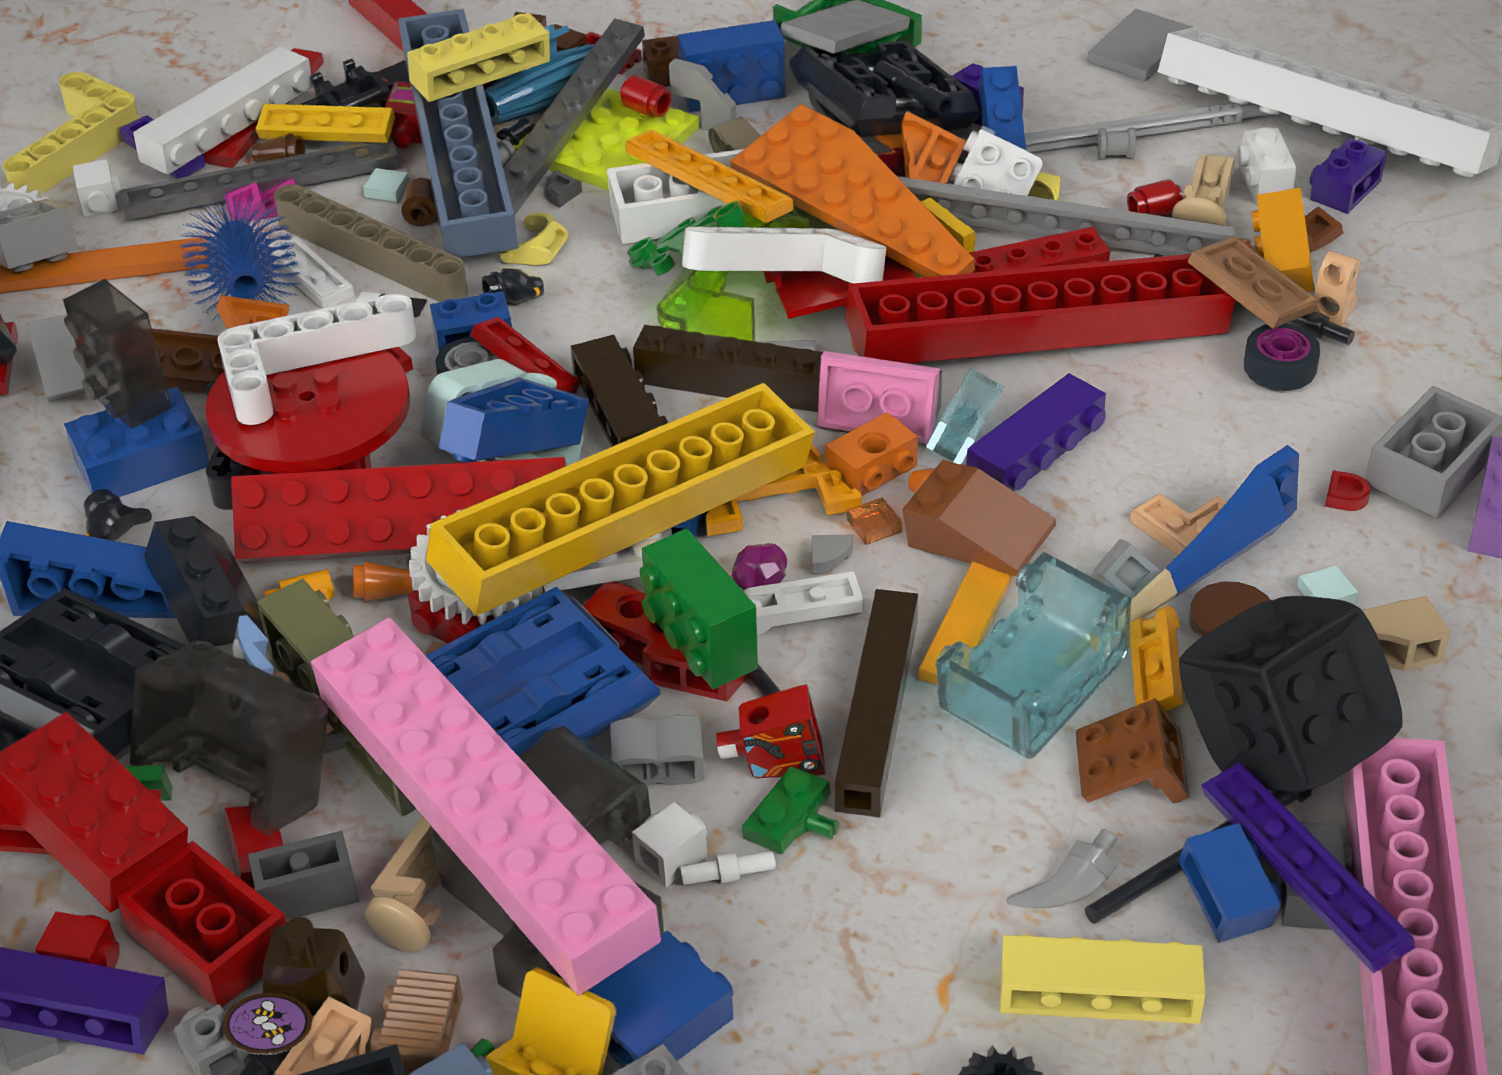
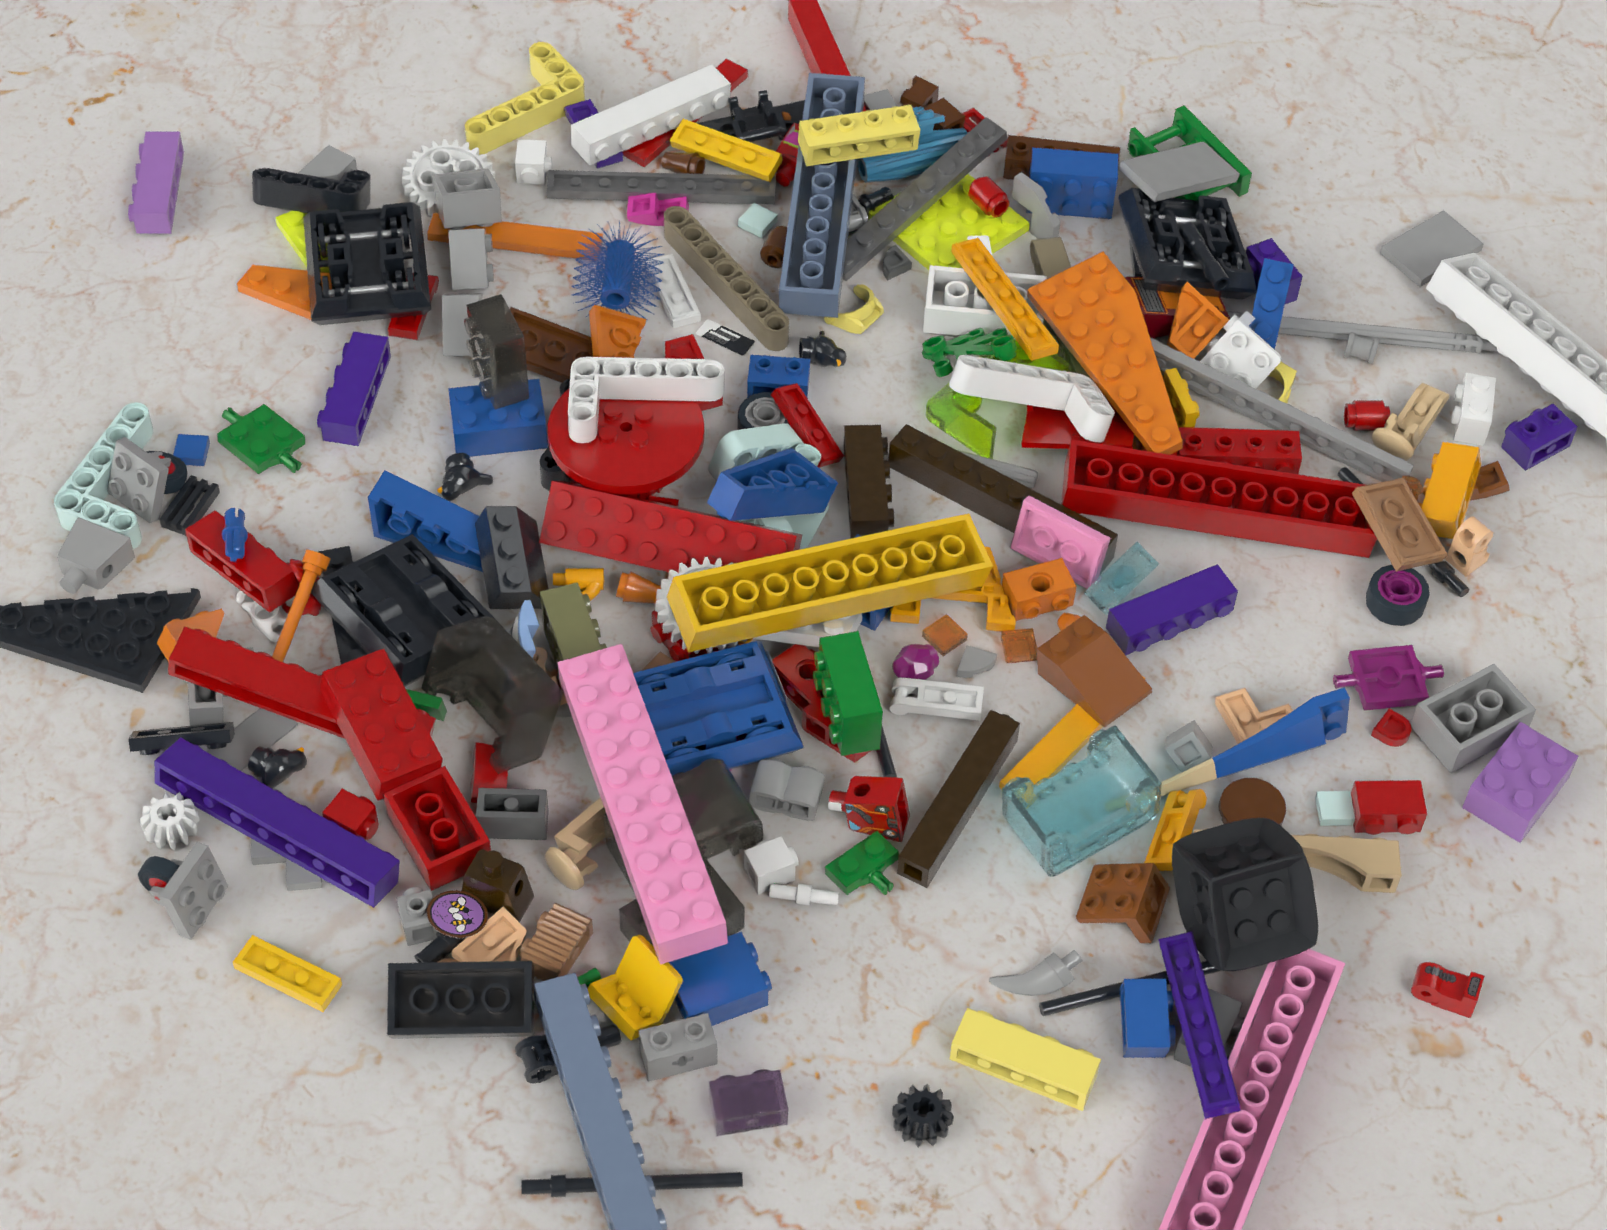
camera: 15 degrees right, 10 degrees up
(46, 281) = (469, 258): none -> light grey brick
(780, 530) = (944, 635): none -> clear orange tile
(1320, 436) = (1388, 677): none -> magenta plate
(1391, 567) = (1388, 806): none -> red brick

